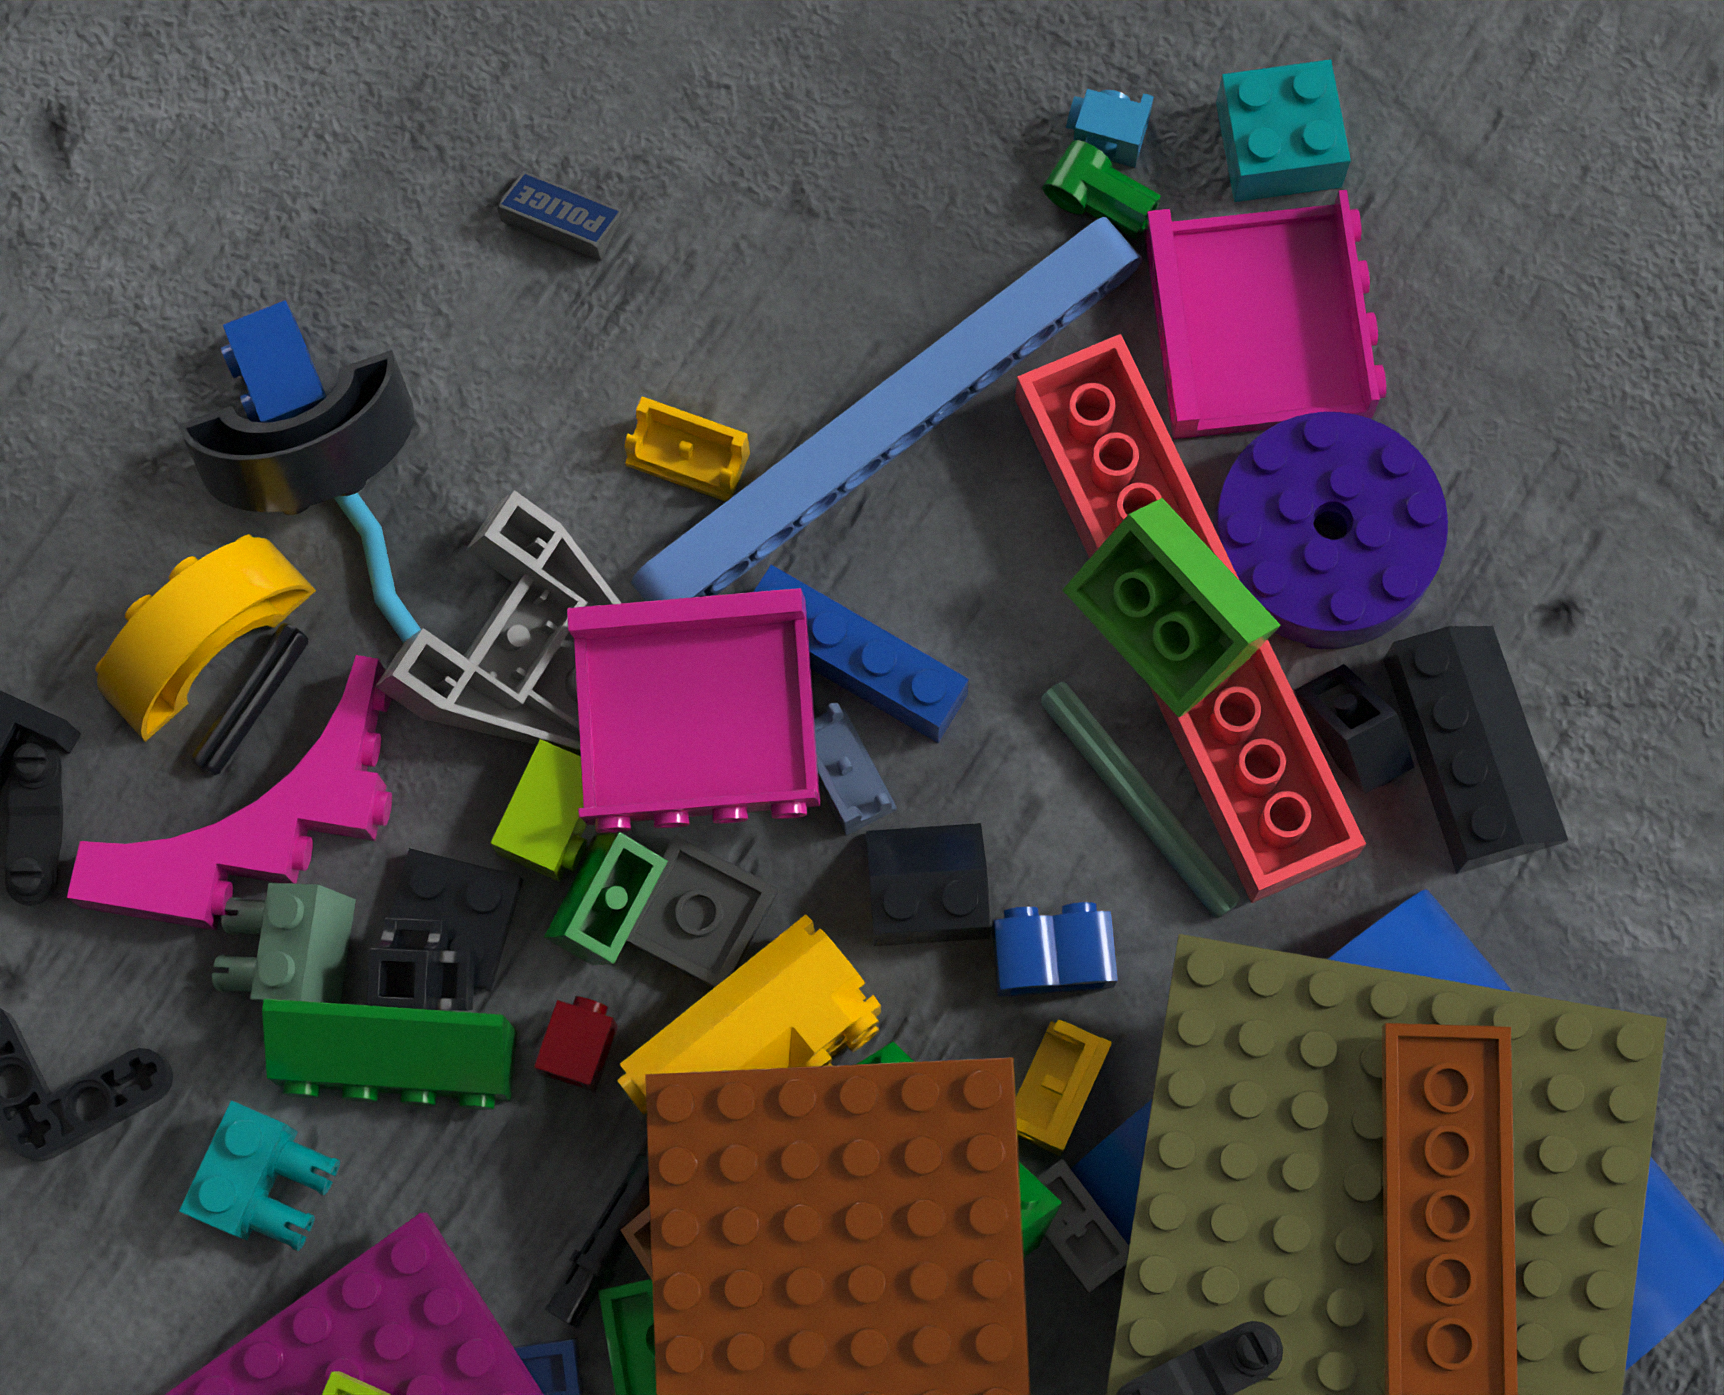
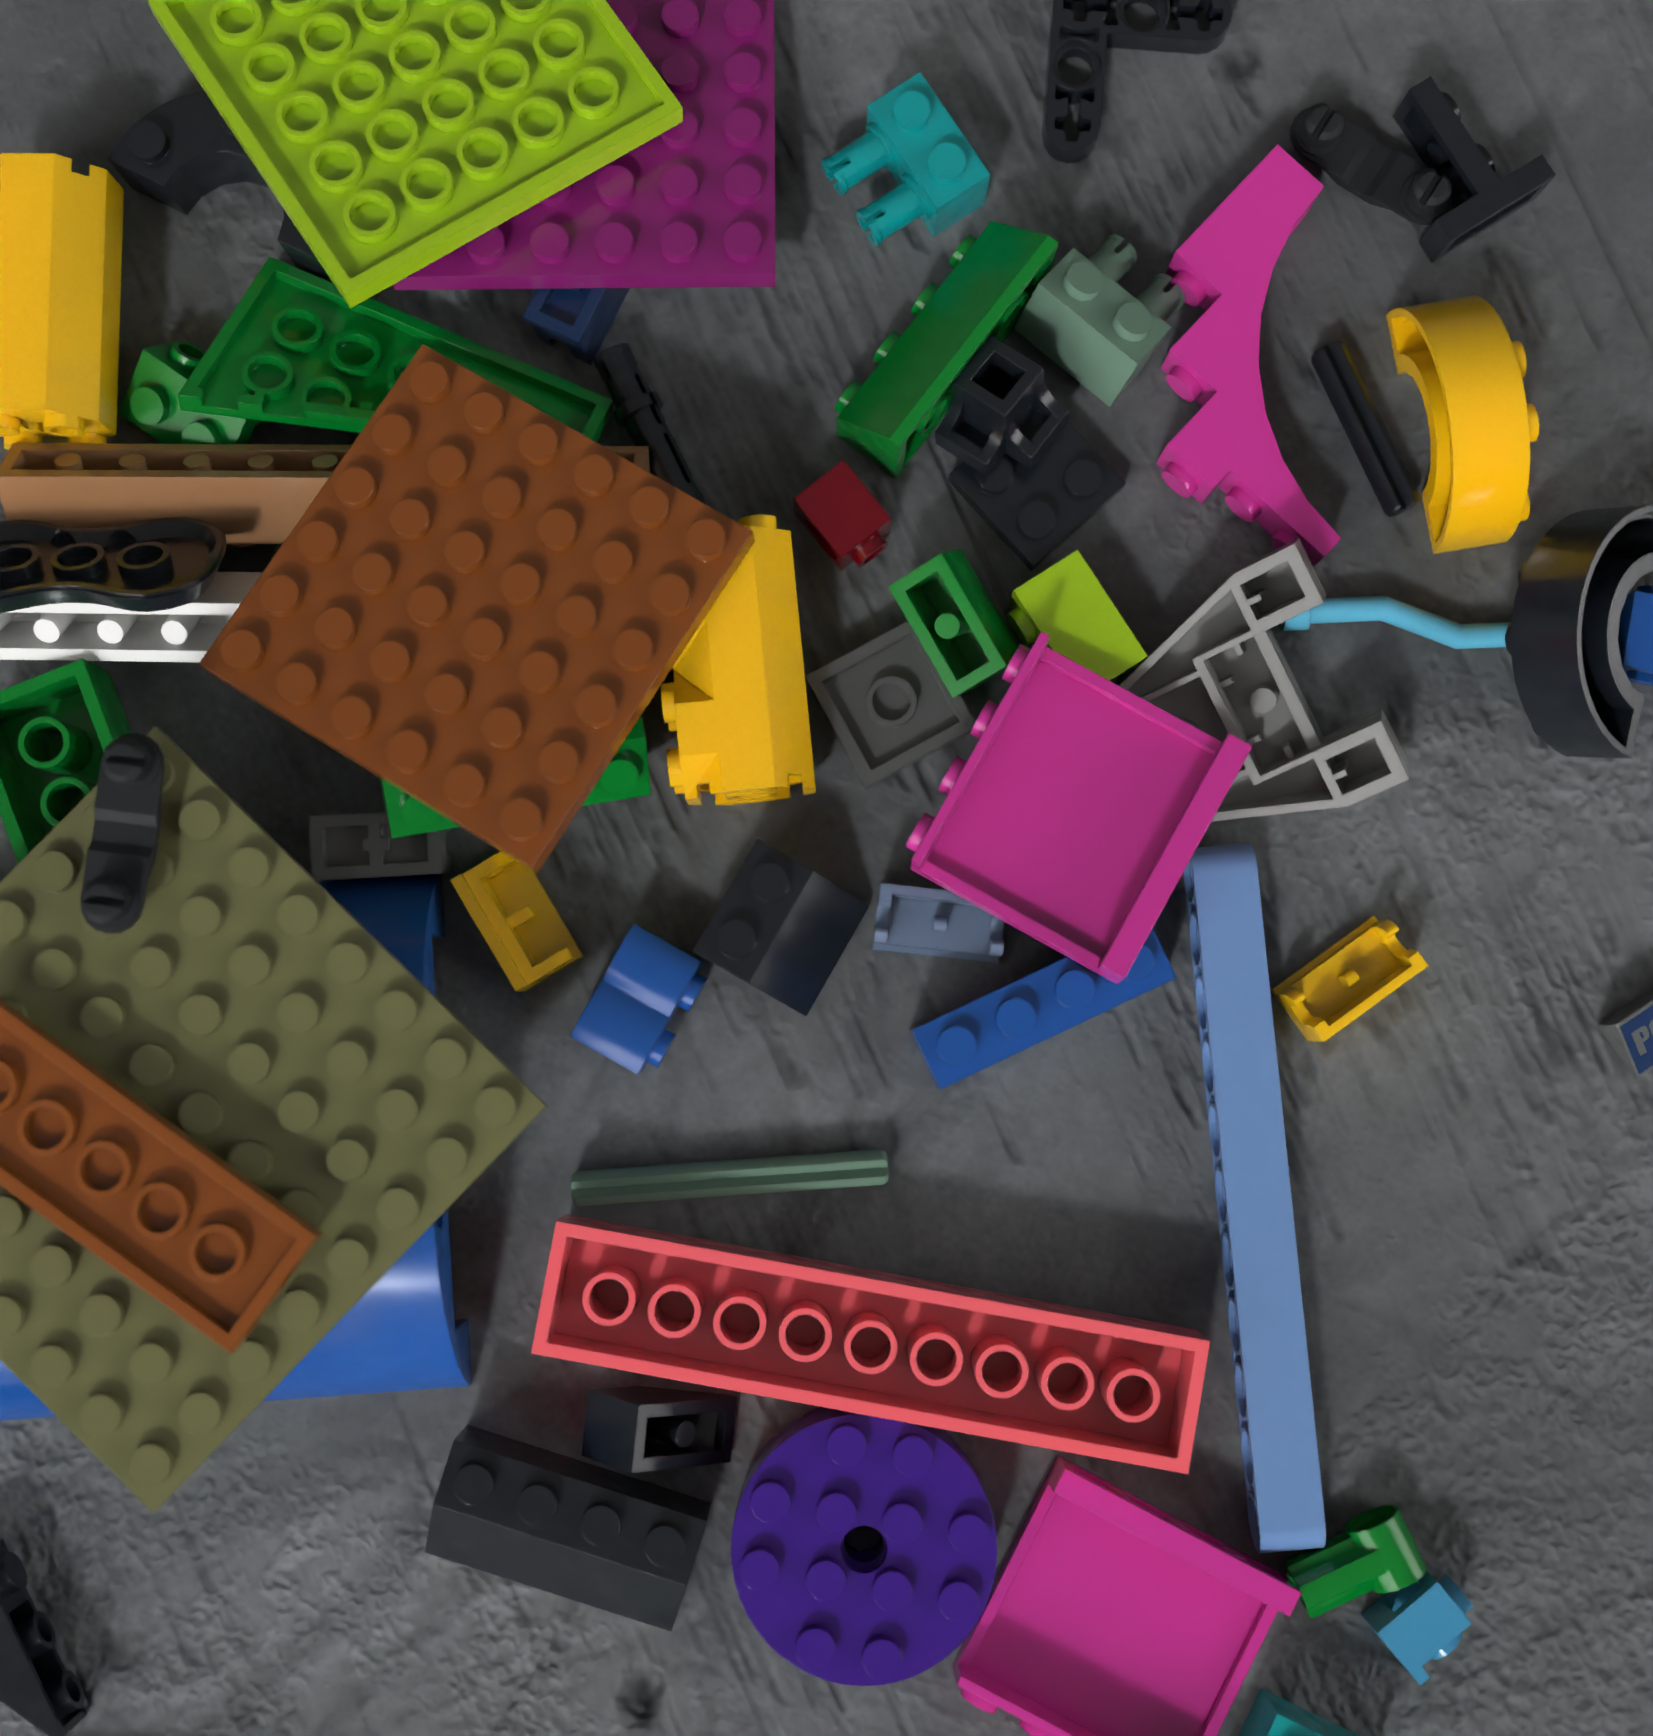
camera: 120 degrees right, 10 degrees up
(1170, 606) = (876, 1327): bright green slope -> none

